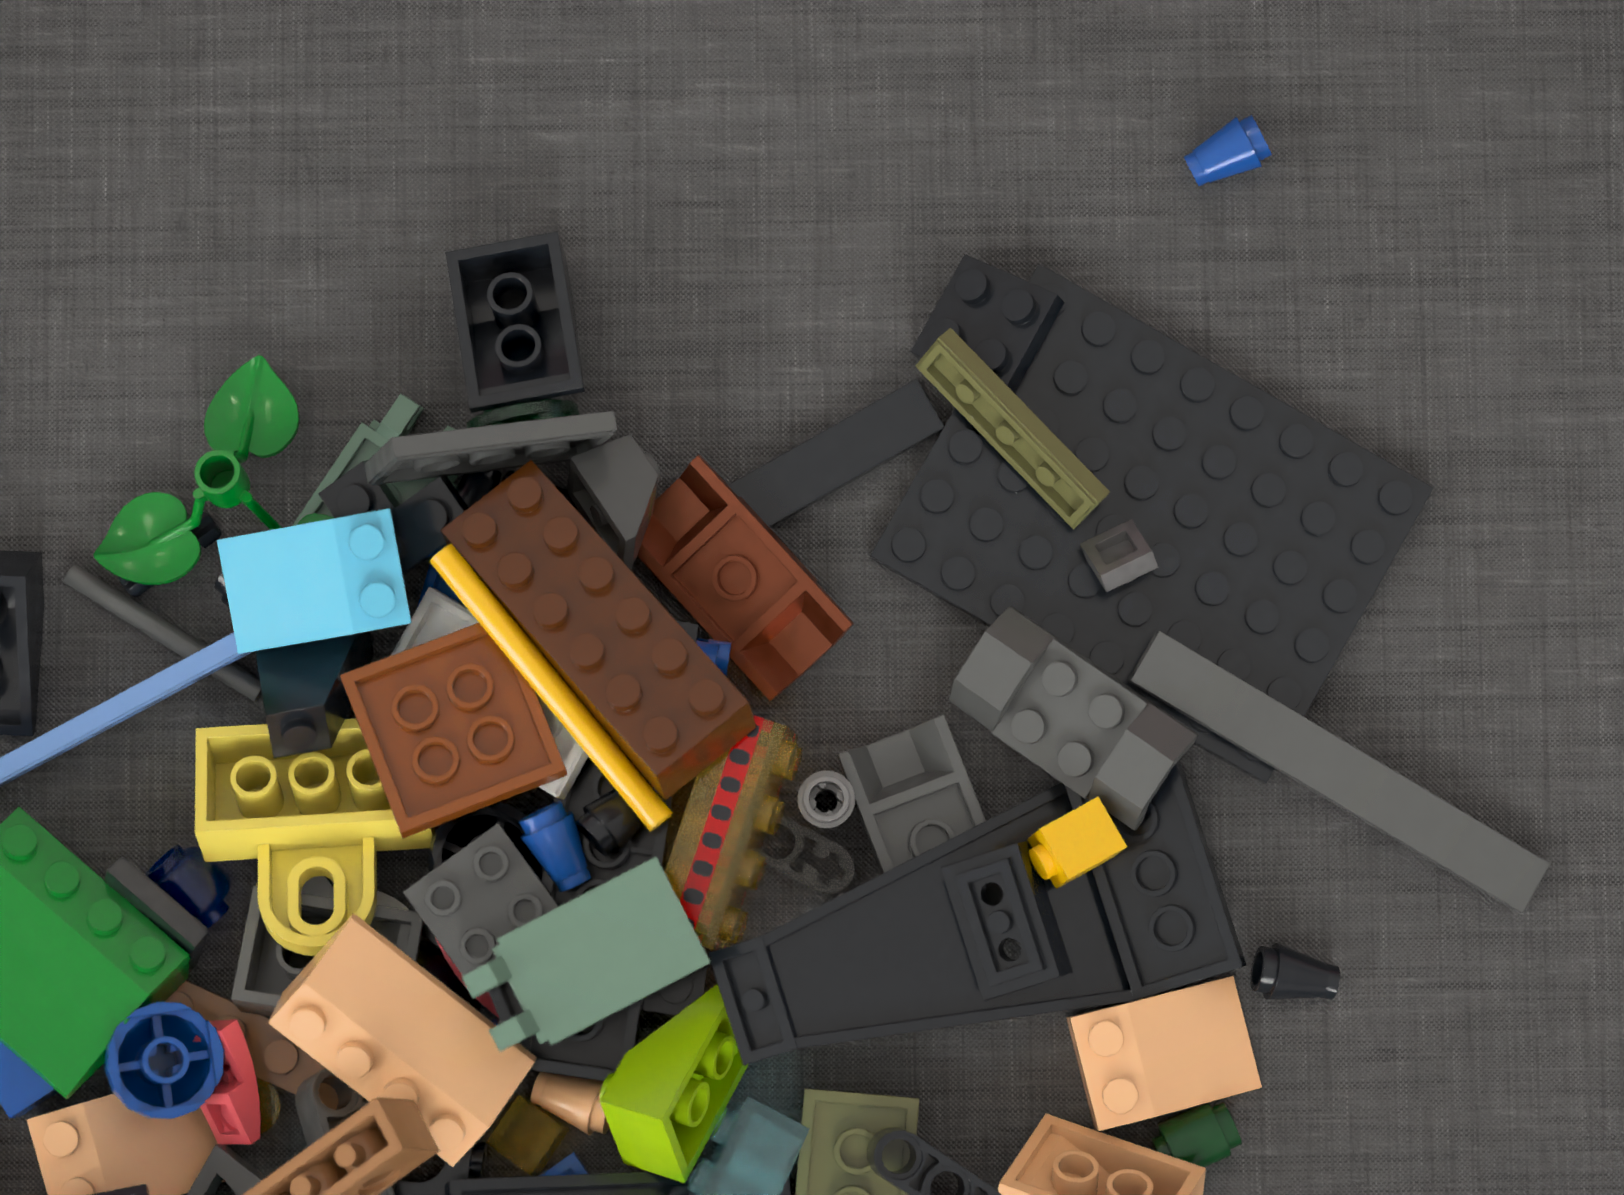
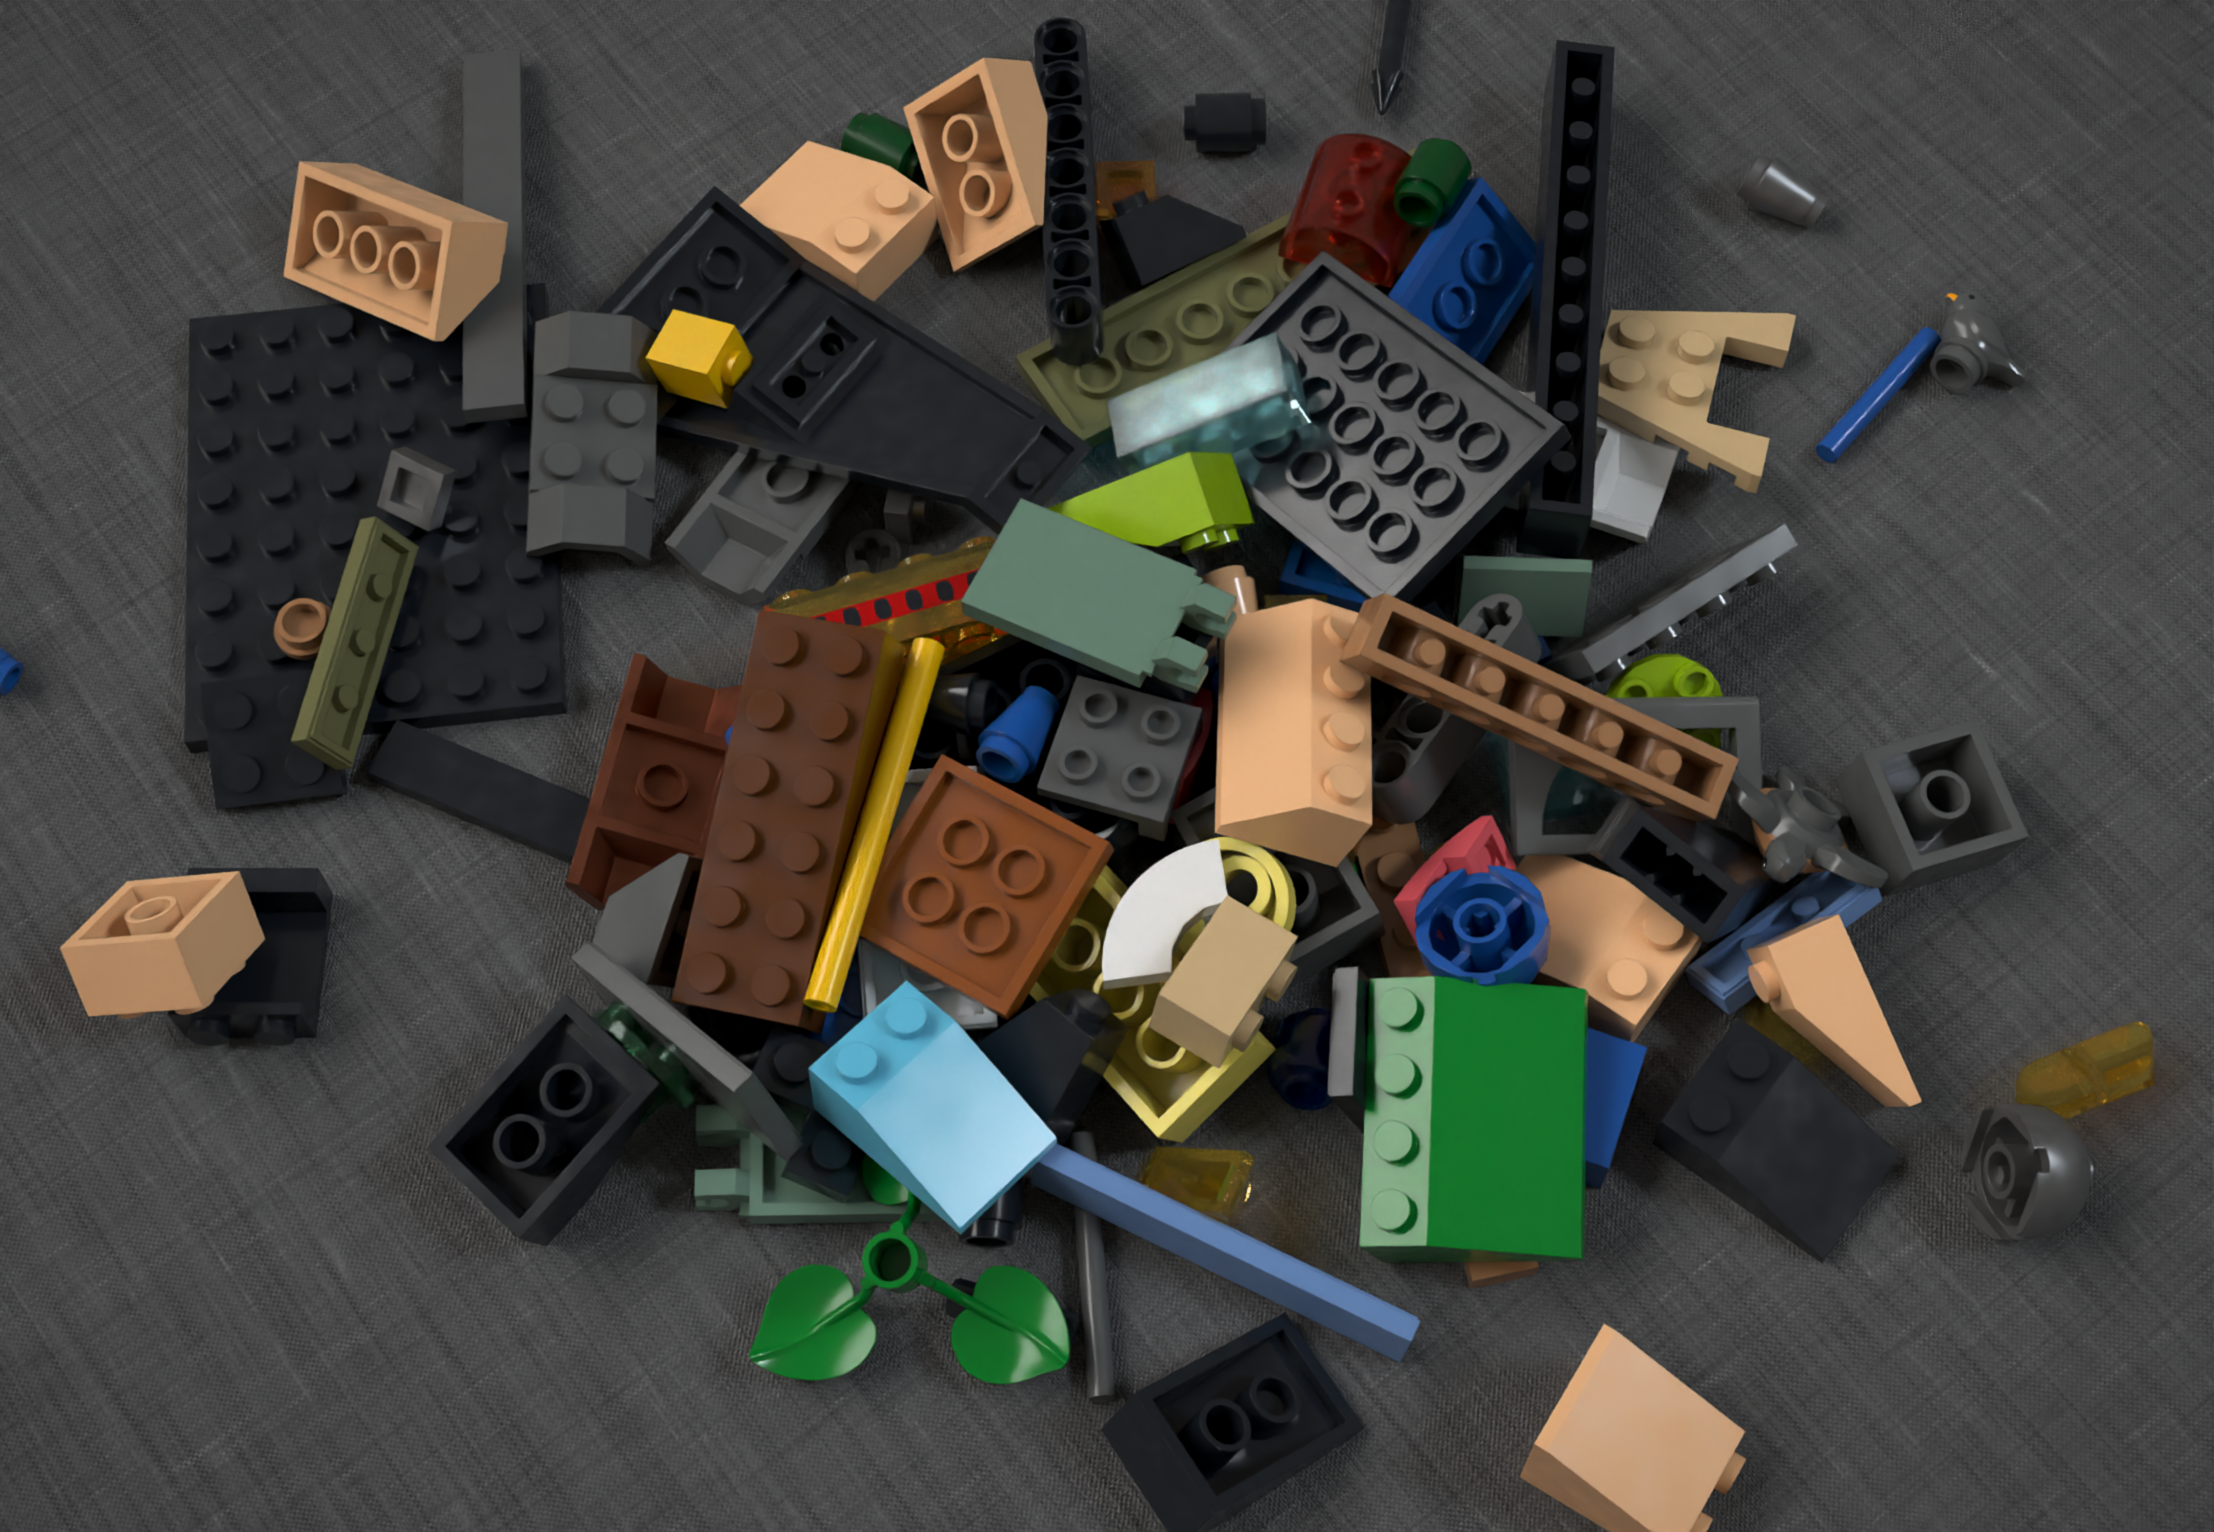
camera: 125 degrees left, 20 degrees down
(154, 736) = (1203, 1179): none -> clear yellow slope
(239, 838) = (1224, 982): none -> tan brick
(333, 836) = (1158, 913): none -> white tile
(818, 210) = (283, 978): none -> black panel
(831, 782) = (809, 567): flat silver cone -> none
(850, 145) = (163, 945): none -> light nougat brick
(1058, 401) = (301, 628): none -> medium nougat plate
(1290, 974) = (695, 166): black cone -> none
(1365, 675) = (391, 247): none -> light nougat slope

